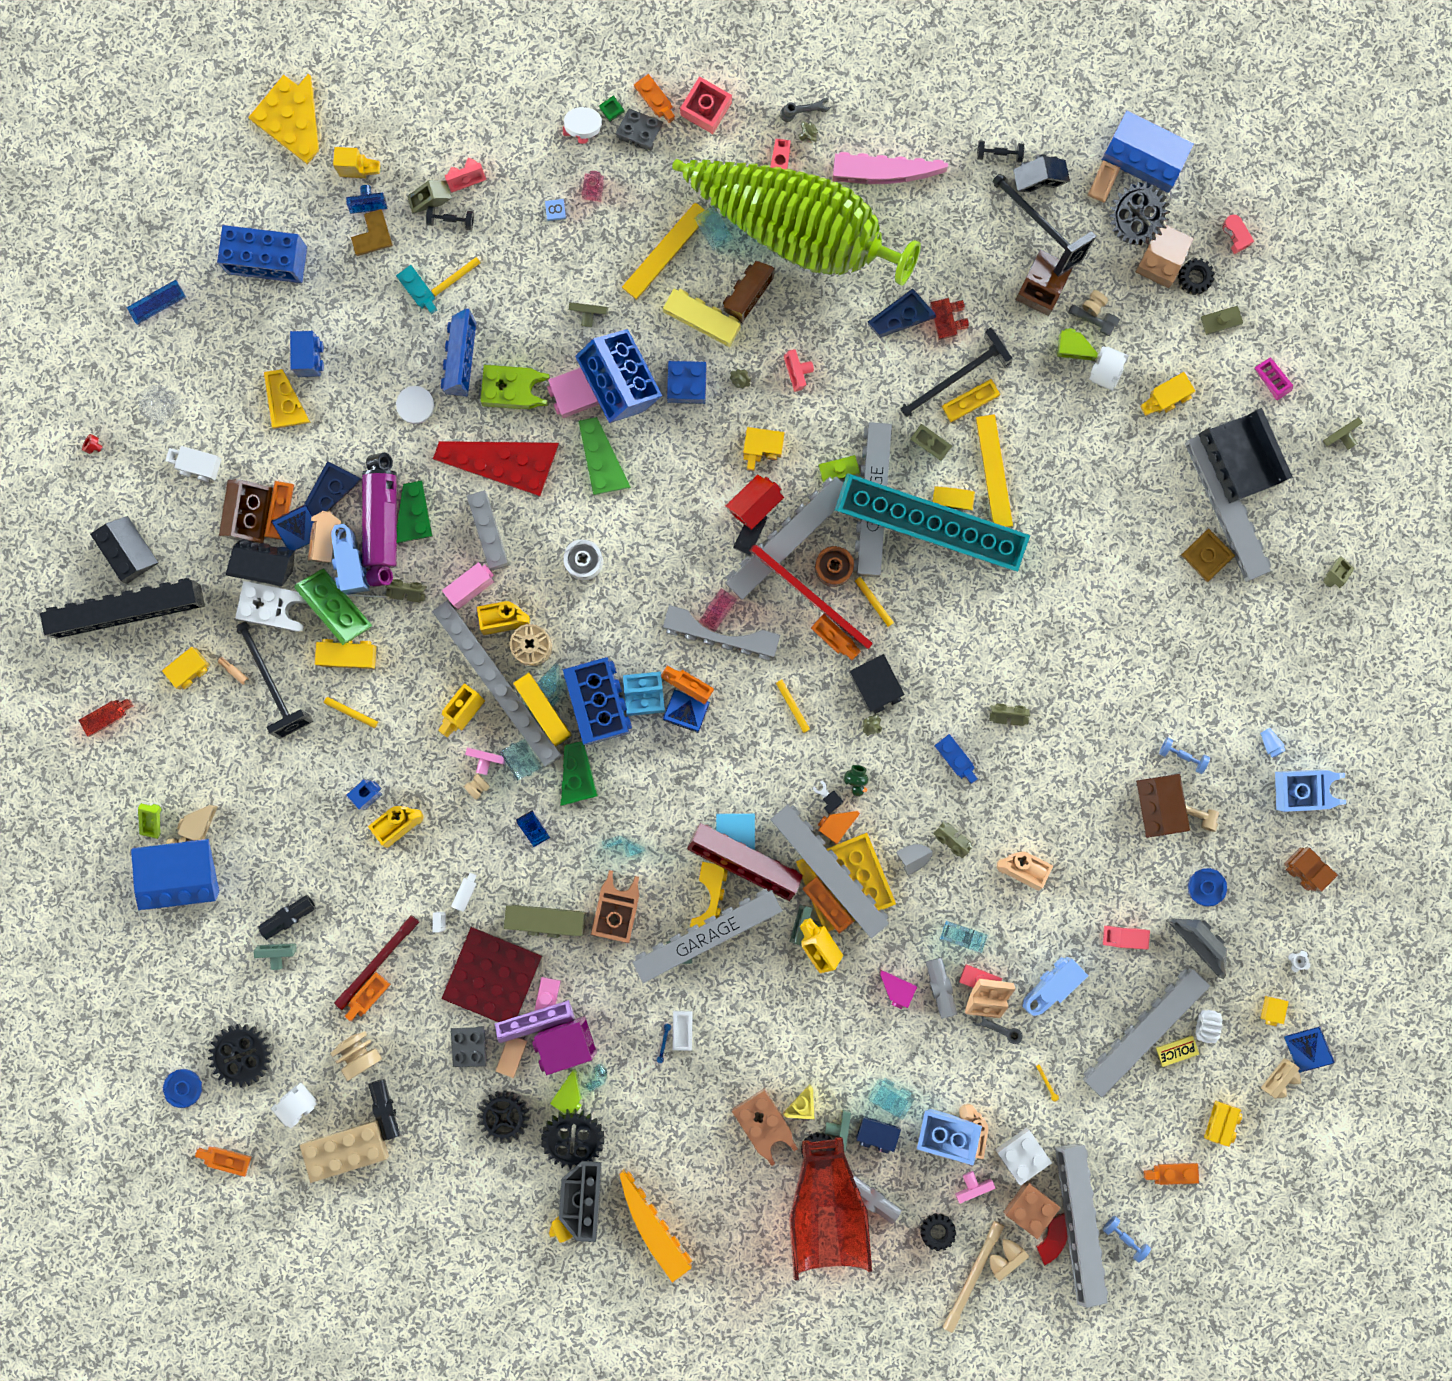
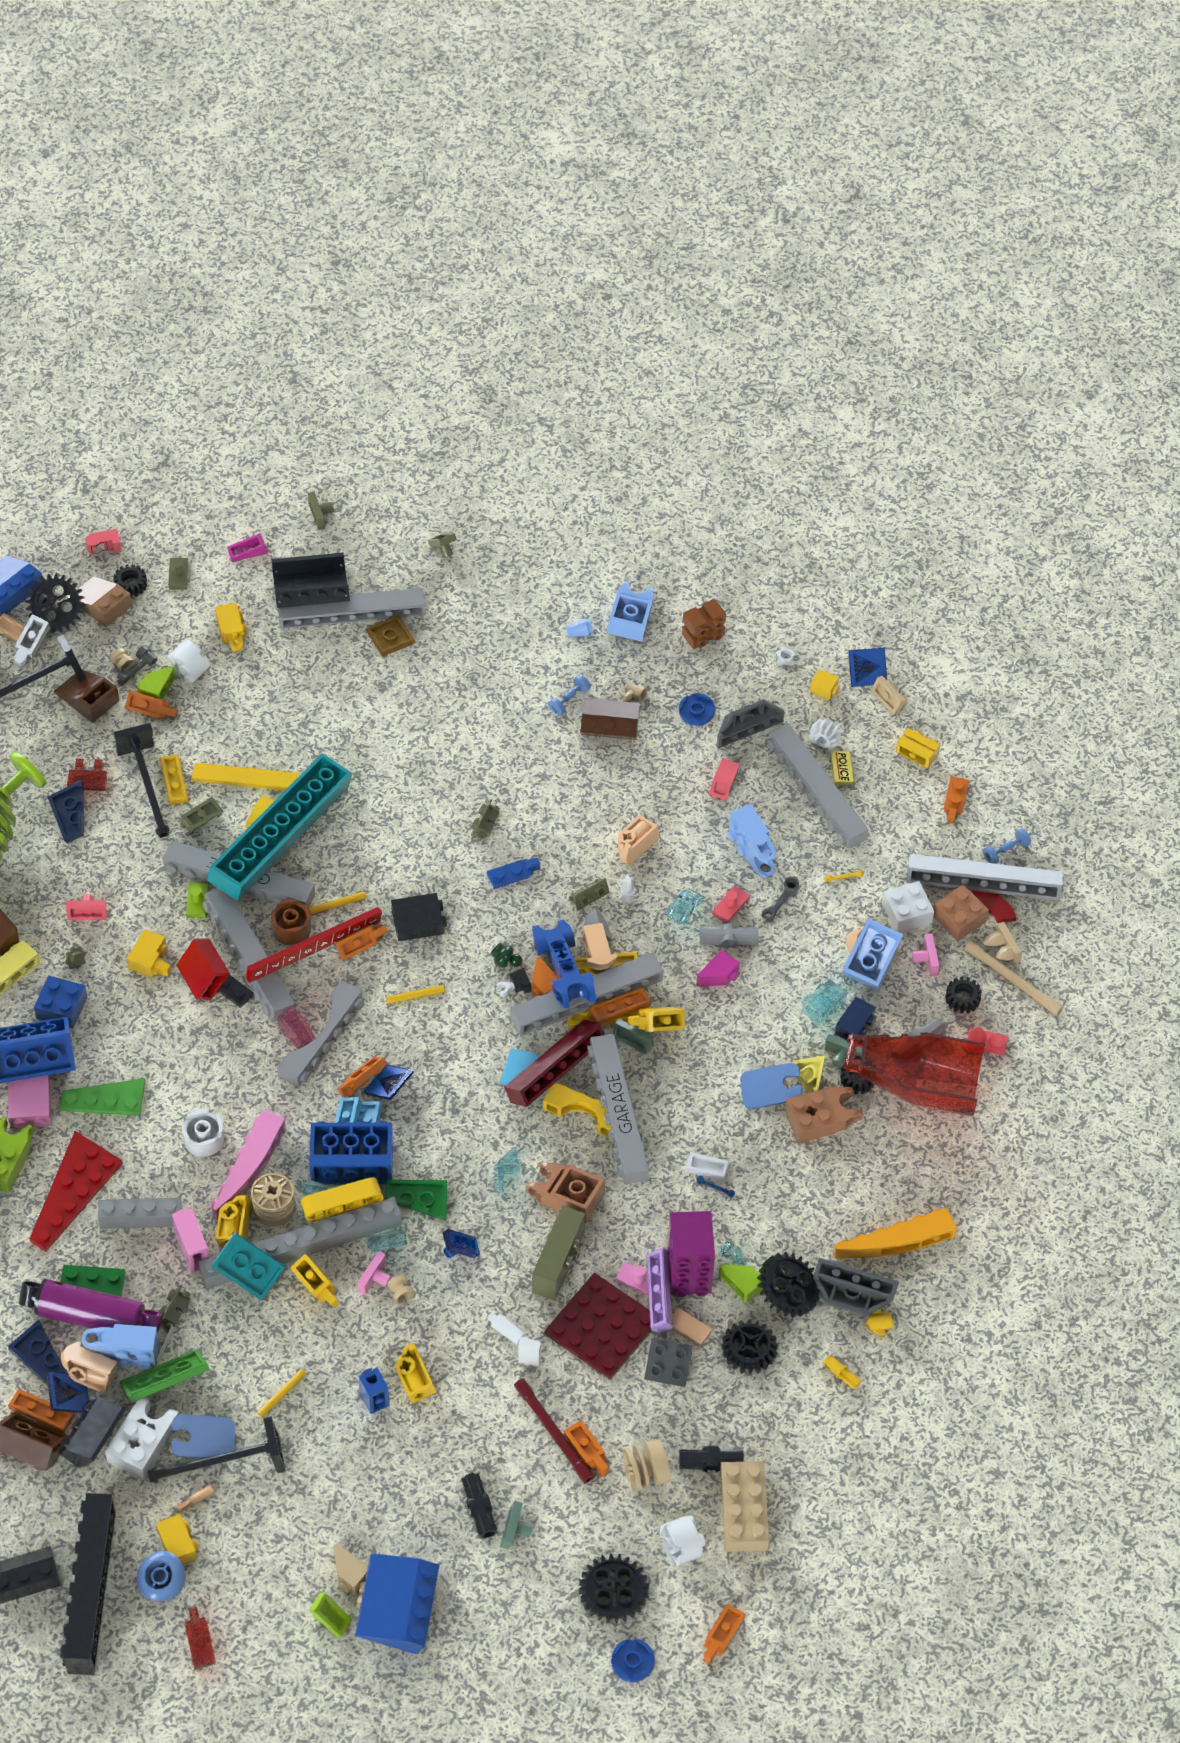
camera: 80 degrees left, 30 degrees down
(147, 665) = (161, 1576): none -> medium blue hat
(288, 663) = (208, 1436): none -> medium blue piece
(346, 656) = (219, 1379): yellow brick -> none
(453, 645) = (248, 1266): none -> teal tile
(502, 1206) = (841, 1371): none -> yellow axle
(571, 611) = (251, 1159): none -> bright pink slope
(781, 1065) = (765, 1085): none -> medium blue piece
(823, 857) = (569, 982): none -> blue piece
(872, 725) = (456, 931): olive plant -> none
(878, 868) = (597, 947): none -> light nougat piece
(893, 1265) = (994, 1042): none -> coral tile
(961, 877) = (627, 890): none -> white axle
(989, 998) = (748, 896): light nougat slope -> none
(1048, 348) = (149, 705): none -> orange hinge
(1089, 206) = (30, 639): none -> white brick

